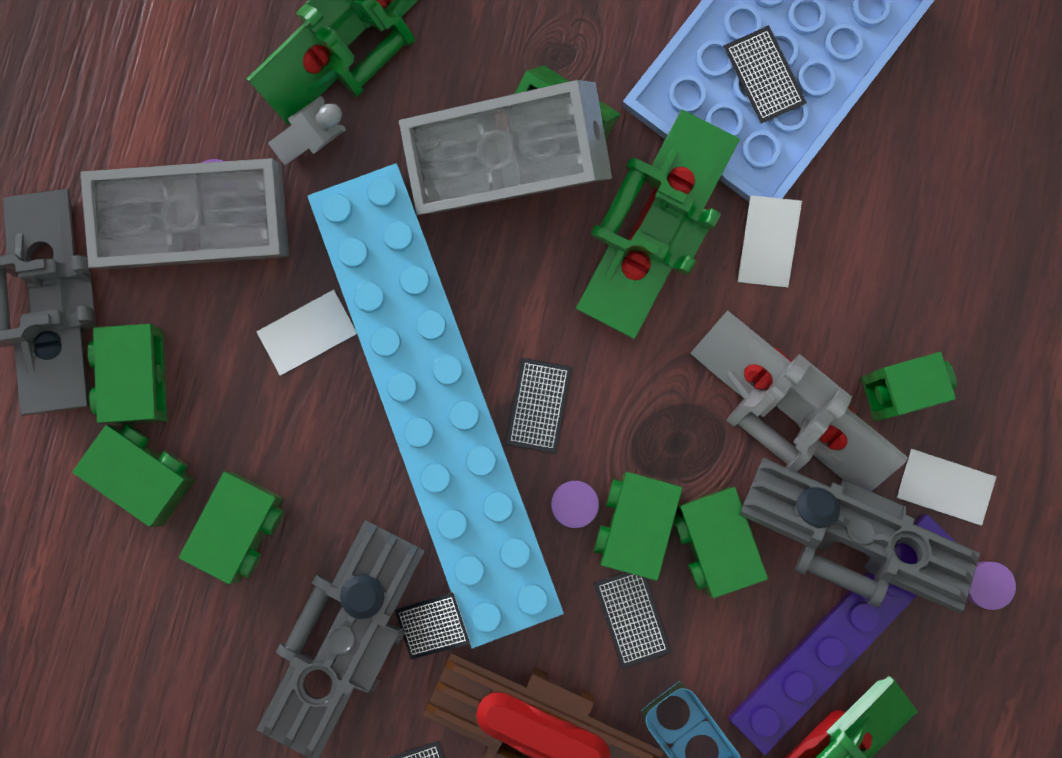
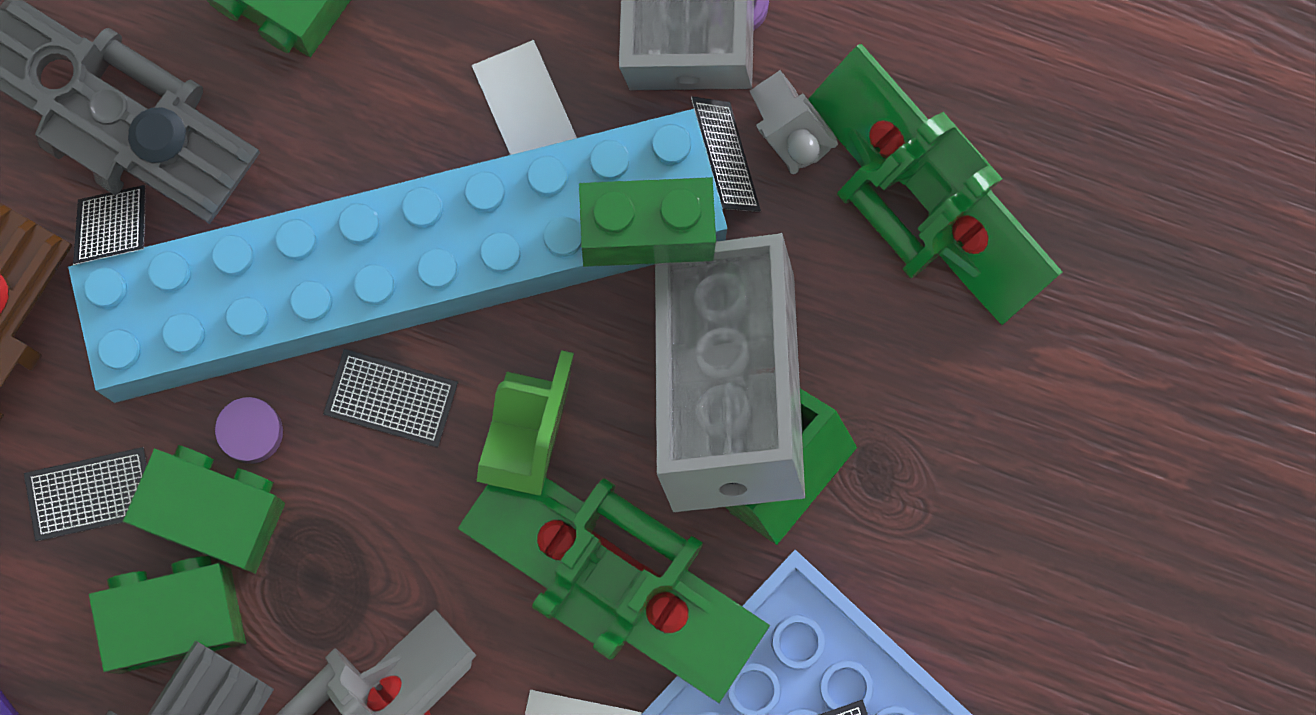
camera: 90 degrees right, 5 degrees down
(334, 176) = (726, 154): none -> black sticker
(402, 211) = (647, 221): none -> green brick
(556, 294) = (524, 429): none -> bright green panel

